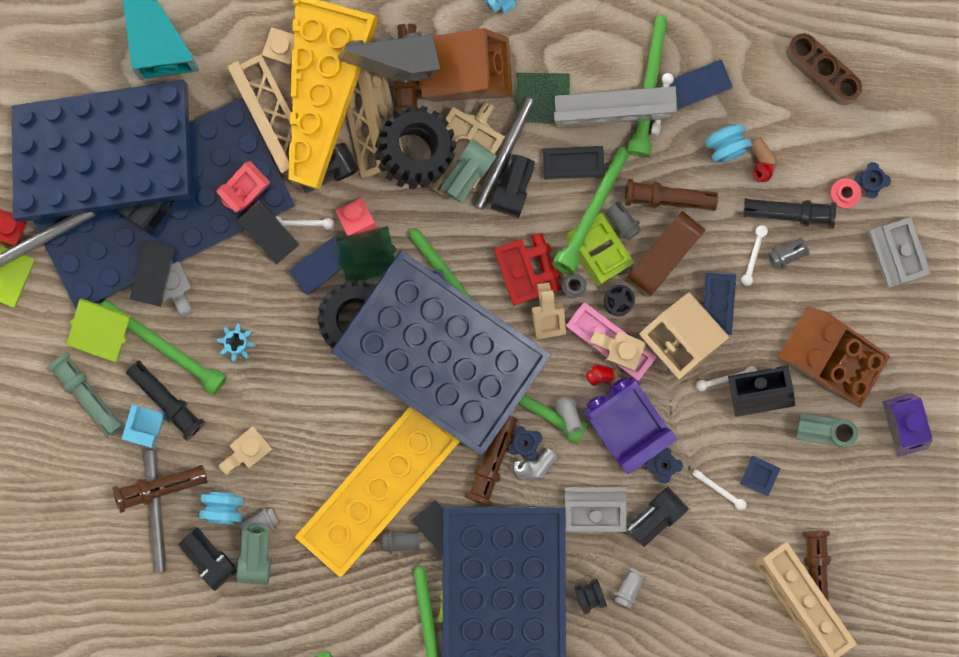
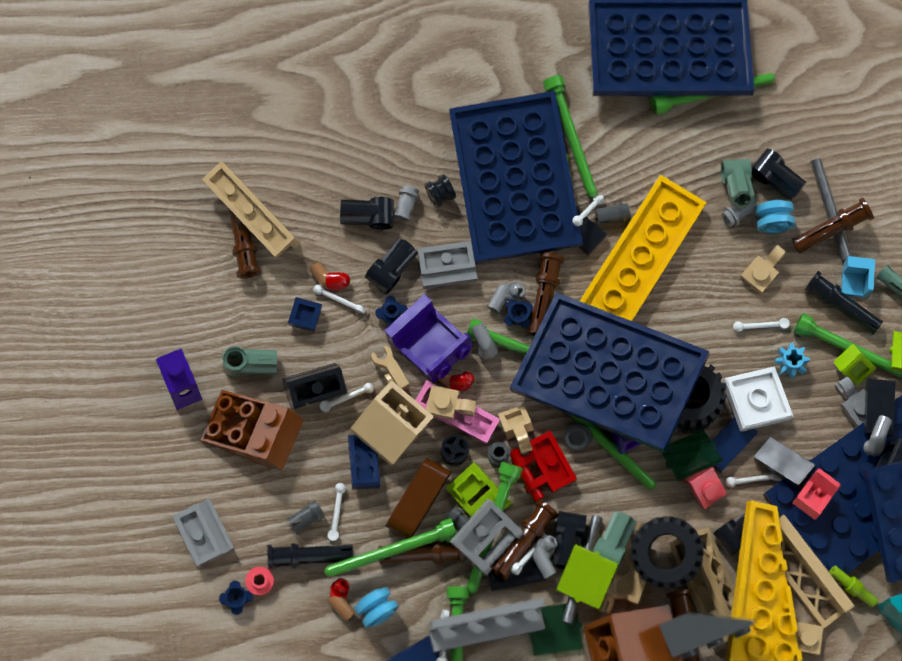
camera: 165 degrees right, 10 degrees down
(166, 232) = (876, 443): none -> light grey arm
(168, 328) = (854, 365): none -> lime slope
(221, 90) = (853, 586): none -> lime bar
(235, 389) = (782, 324): none -> white hinge
(282, 306) = (757, 399): none -> white plate
(414, 561) = (578, 220): none -> white hinge
(485, 294) = (578, 437): none -> dark grey plate
(503, 138) = (587, 576): none -> lime piece
(539, 192) = (517, 567): none -> white hinge
(544, 172) = (542, 555): none -> light grey arm
(550, 202) = (533, 529): none -> reddish brown pin
(608, 200) = (481, 531): none -> light grey plate
(644, 210) = (443, 532): none -> bright green piece
(669, 582) = (376, 213): none -> black piece
(672, 390) = (392, 369): none -> tan plate
(726, 511) = (330, 280): none -> arm

